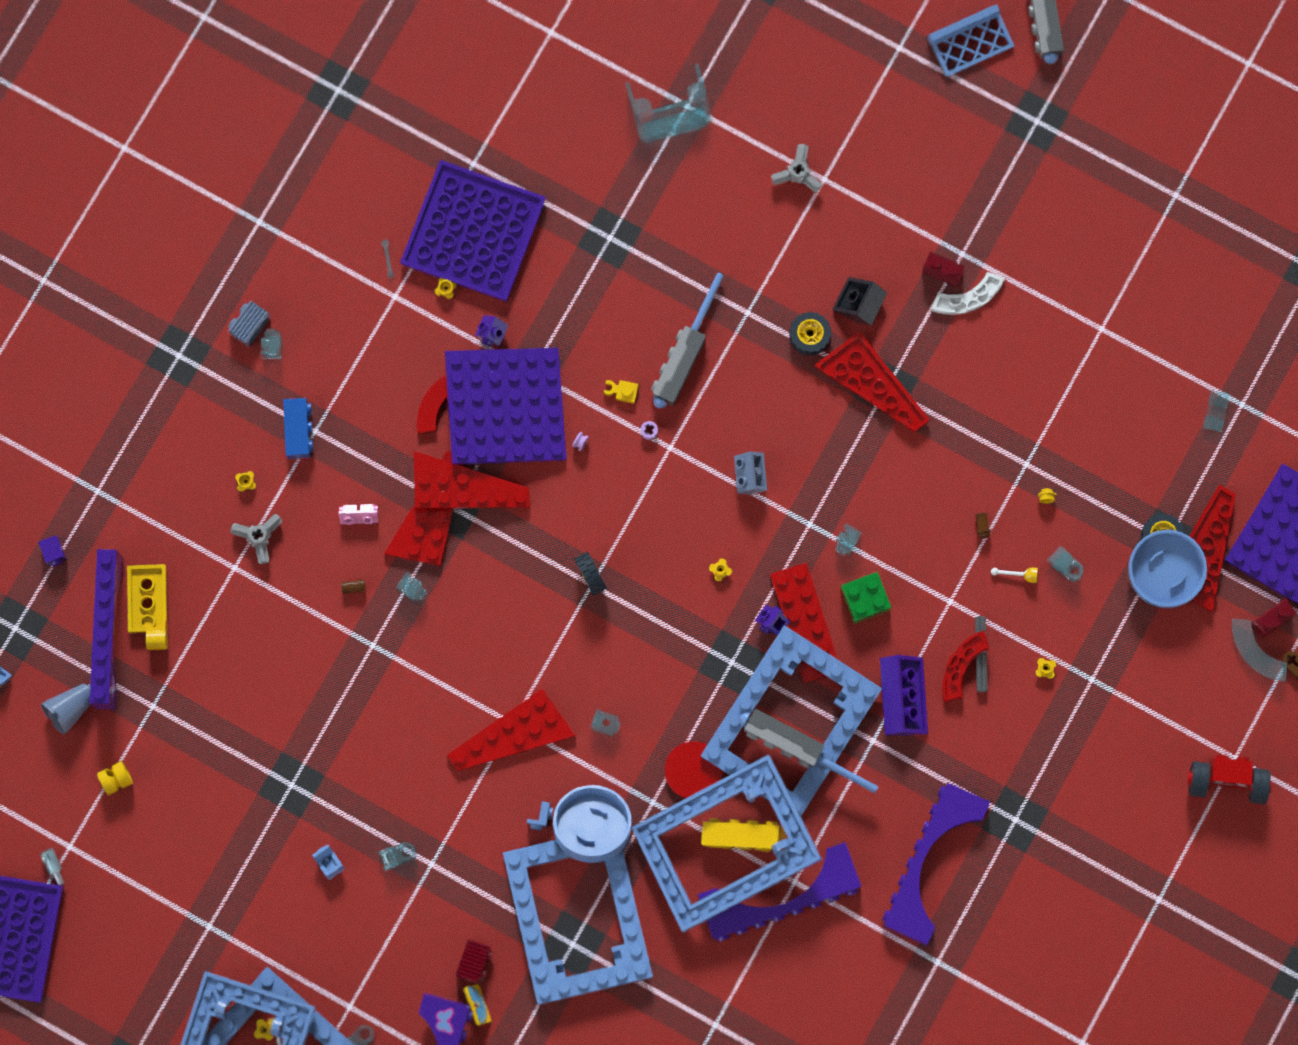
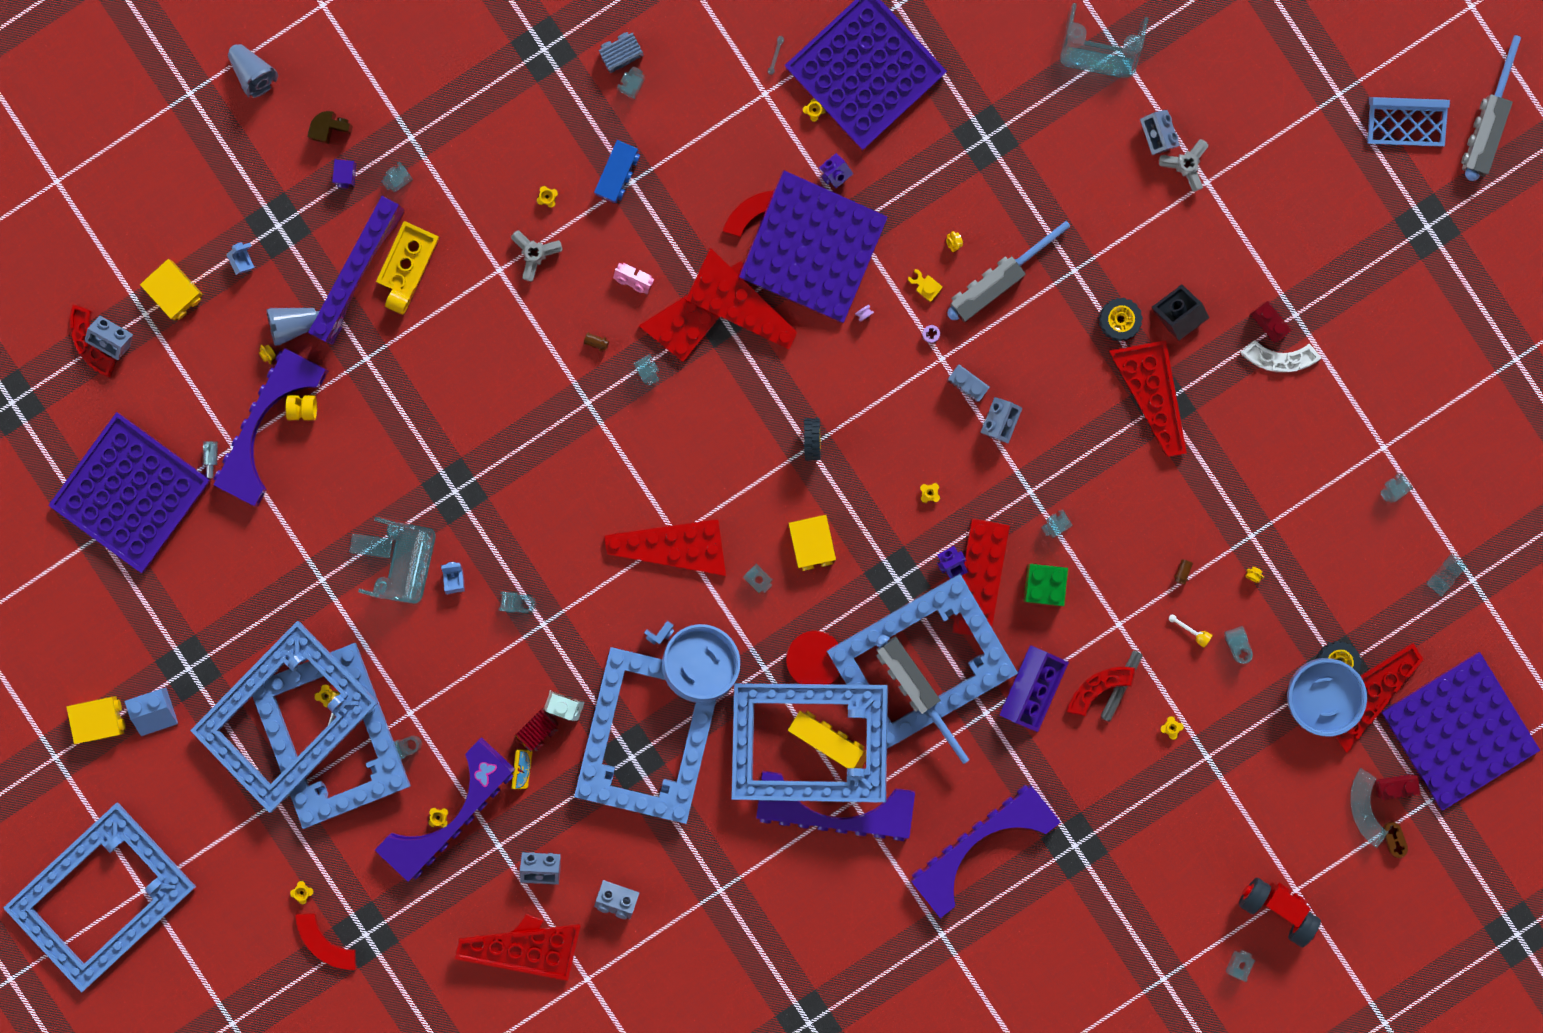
camera: 25 degrees right, 10 degrees up
(13, 517) = (324, 123): none -> dark brown brick
(60, 746) = (267, 353): none -> yellow plate
(89, 756) = (239, 469): none -> dark purple arch
(102, 531) = (396, 178): none -> clear light blue brick
(239, 871) = (371, 545): none -> clear light blue slope
(280, 867) = (408, 564): none -> clear light blue windscreen
(487, 926) = (563, 706): none -> light aqua torso
(628, 339) = (954, 241): none -> yellow plate
(637, 666) = (812, 542): none -> yellow brick
(704, 456) = (968, 383): none -> sand blue brick
(759, 155) = (1160, 132): none -> sand blue brick
(1130, 358) = (1396, 488): none -> clear light blue brick
(1218, 856) = (1233, 967): none -> clear light blue brick

